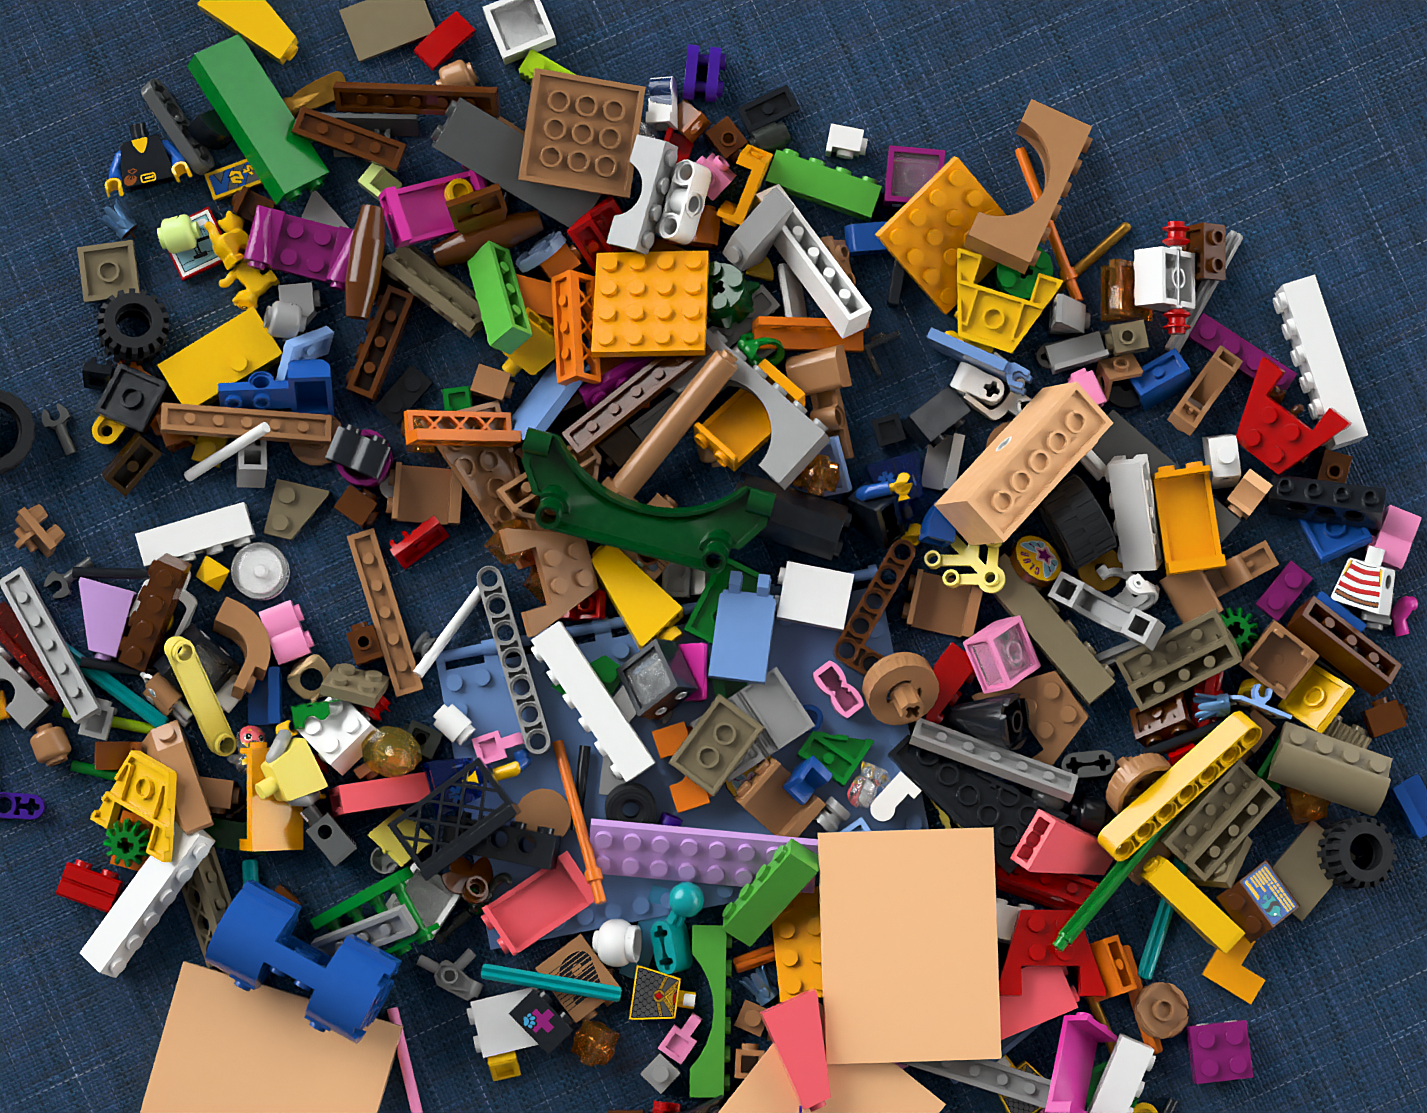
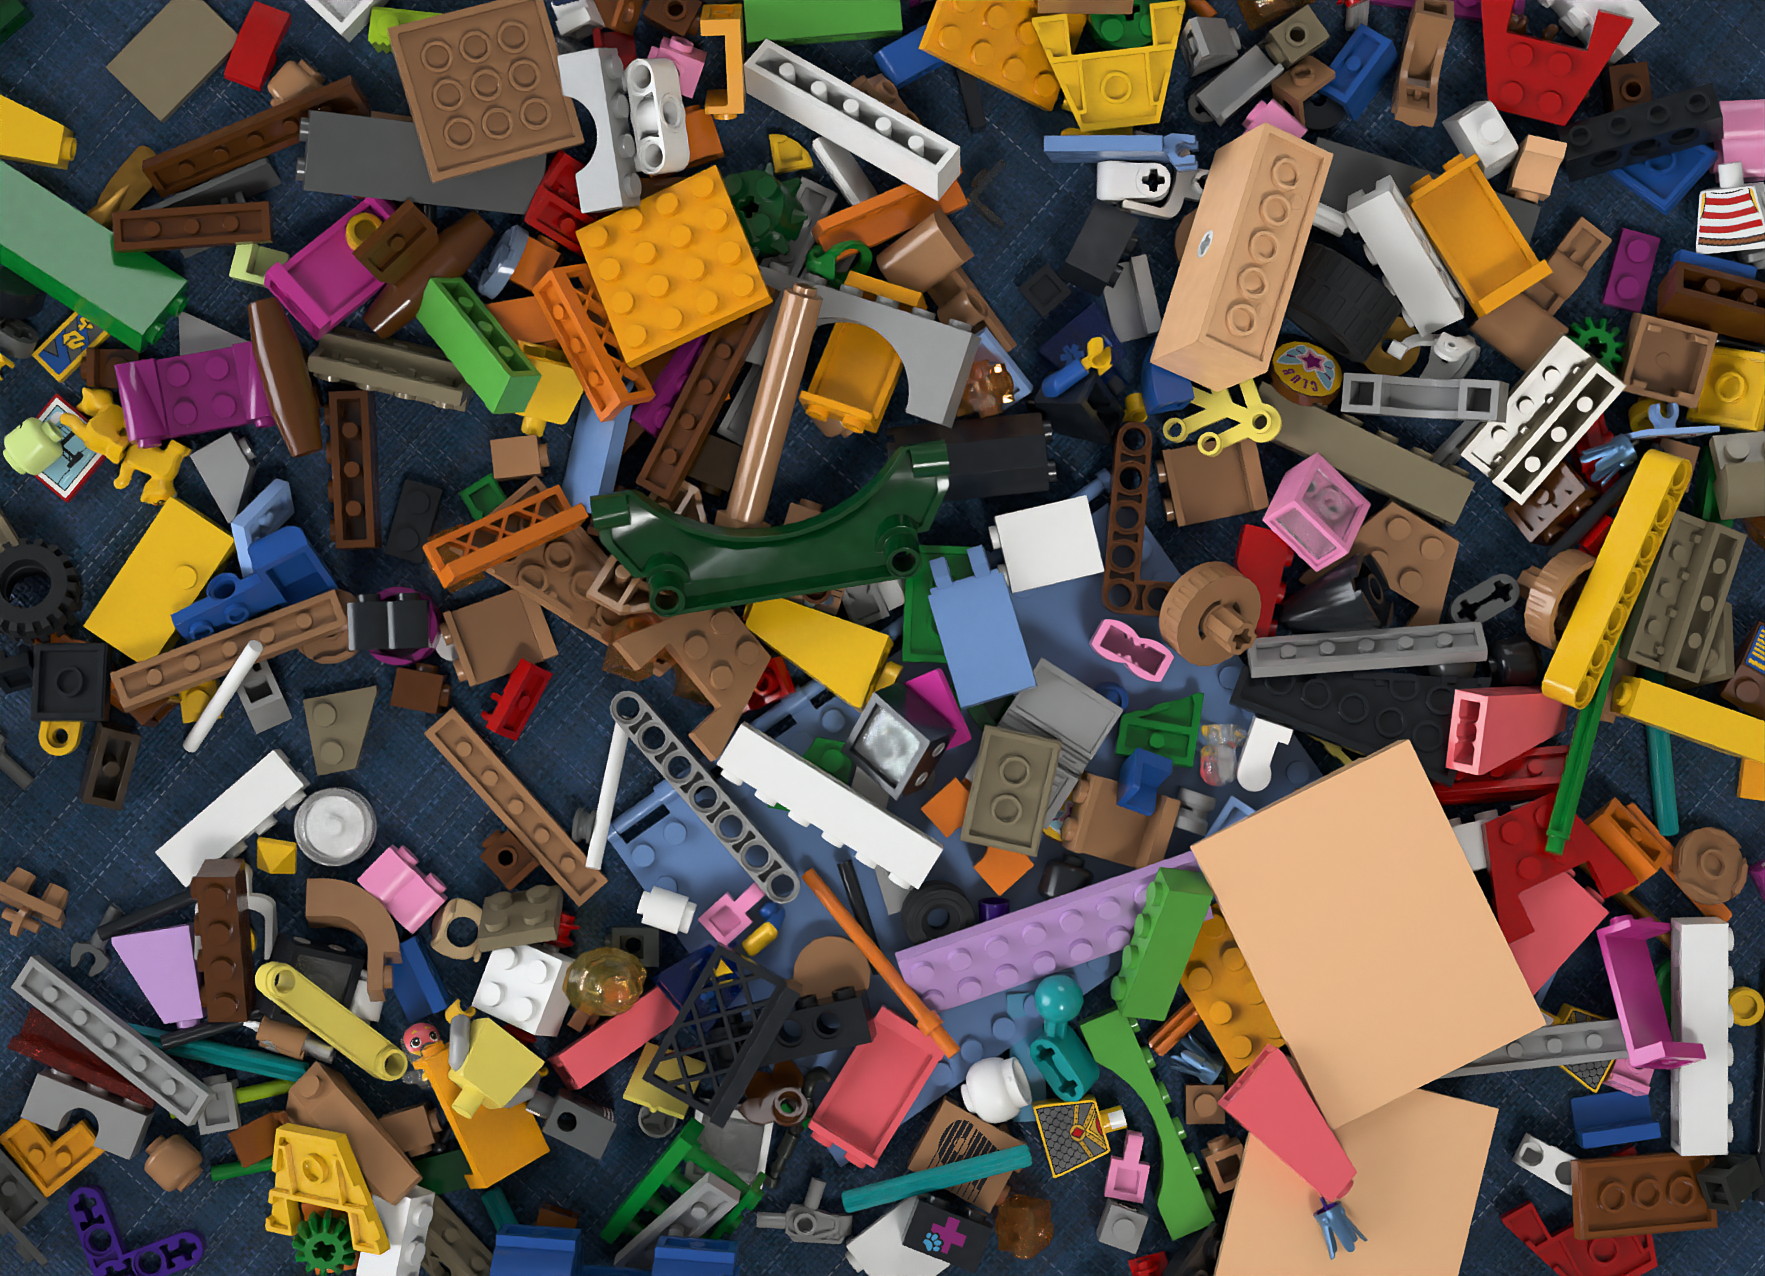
camera: 20 degrees left, 5 degrees up
(284, 320) = (217, 496): light grey head -> none
(319, 710) = (470, 984): green piece -> none
(726, 820) = (1064, 877): none -> black head
(759, 231) = (769, 110): light grey slope -> none

